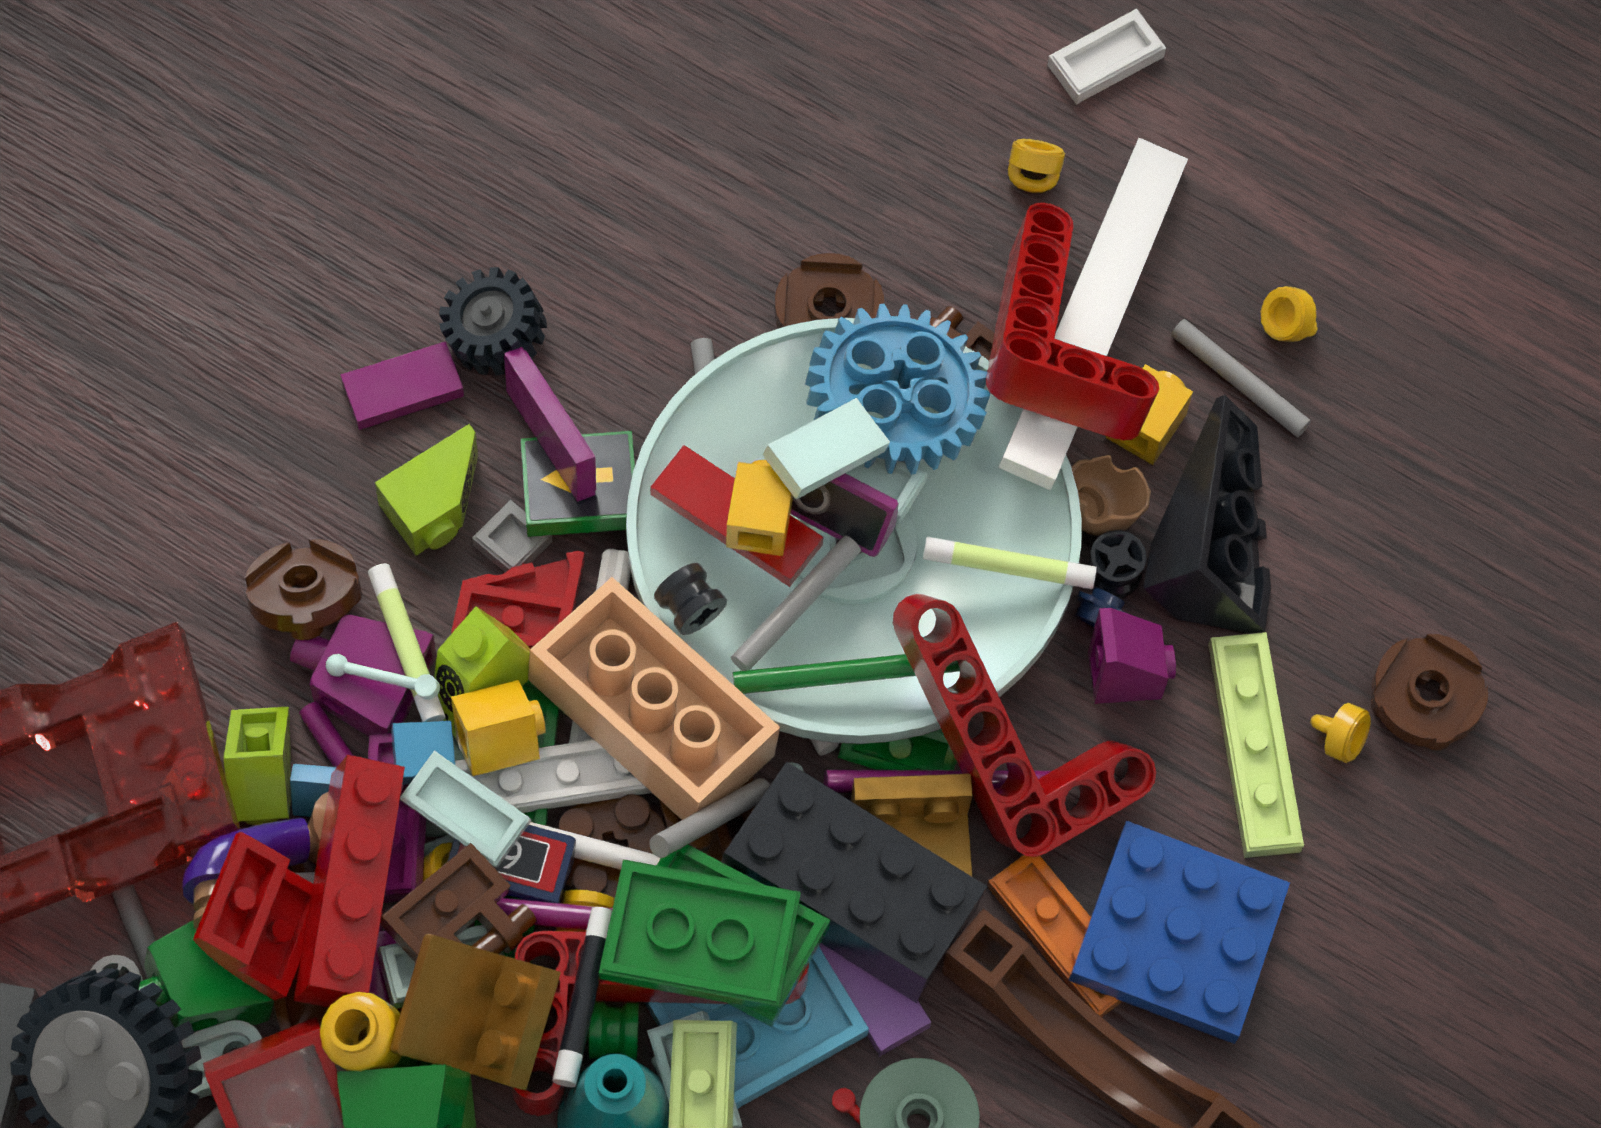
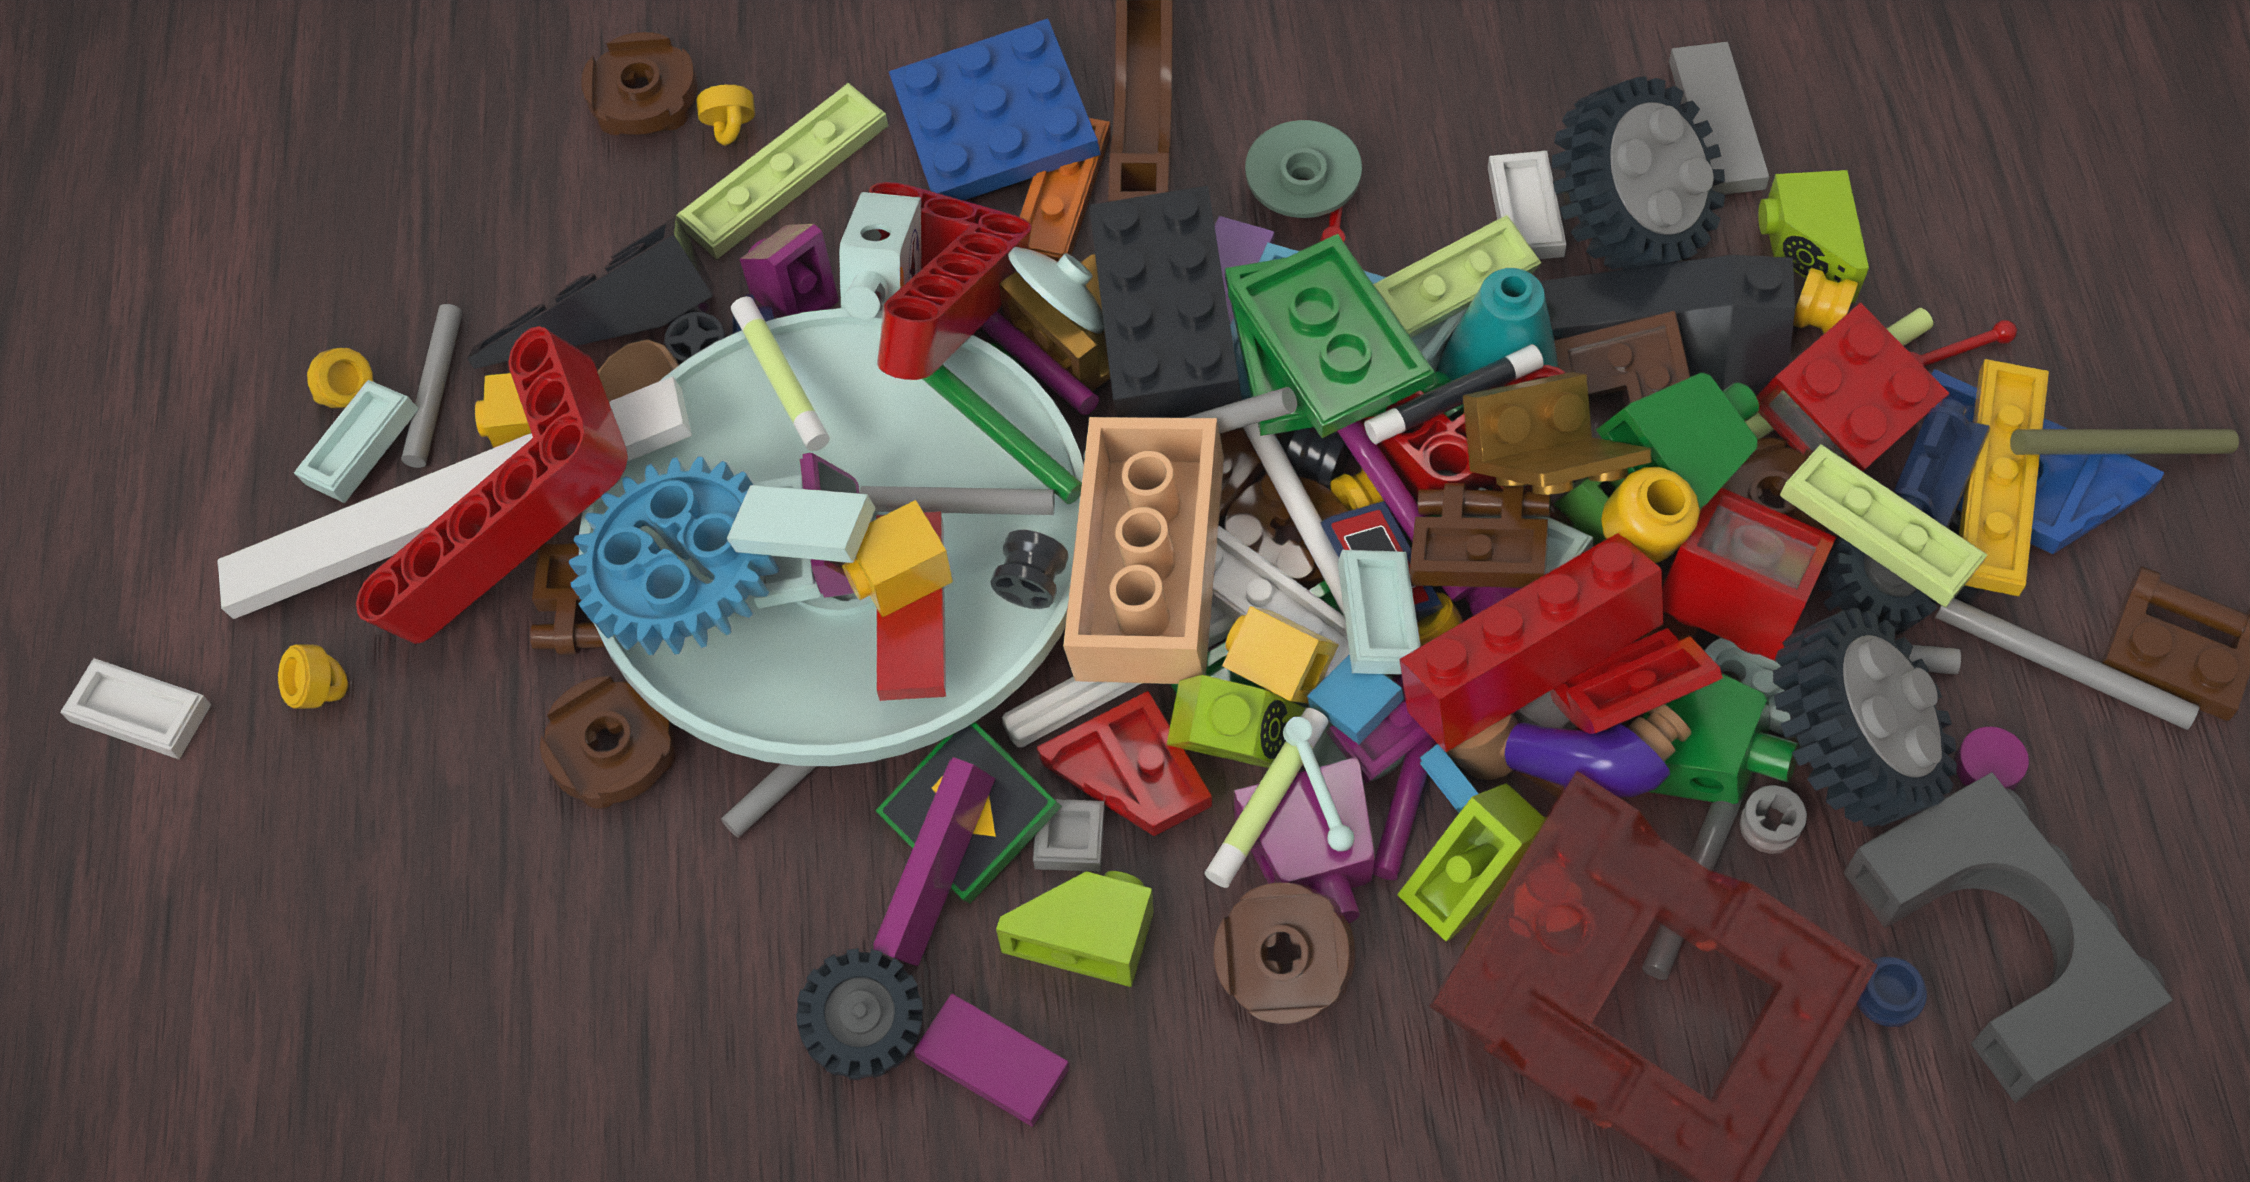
camera: 120 degrees left, 5 degrees down
(939, 800) = (1061, 285): none -> light aqua dish
(1061, 706) = (876, 268): none -> light aqua torso
(1223, 297) = (356, 441): none -> light aqua tile

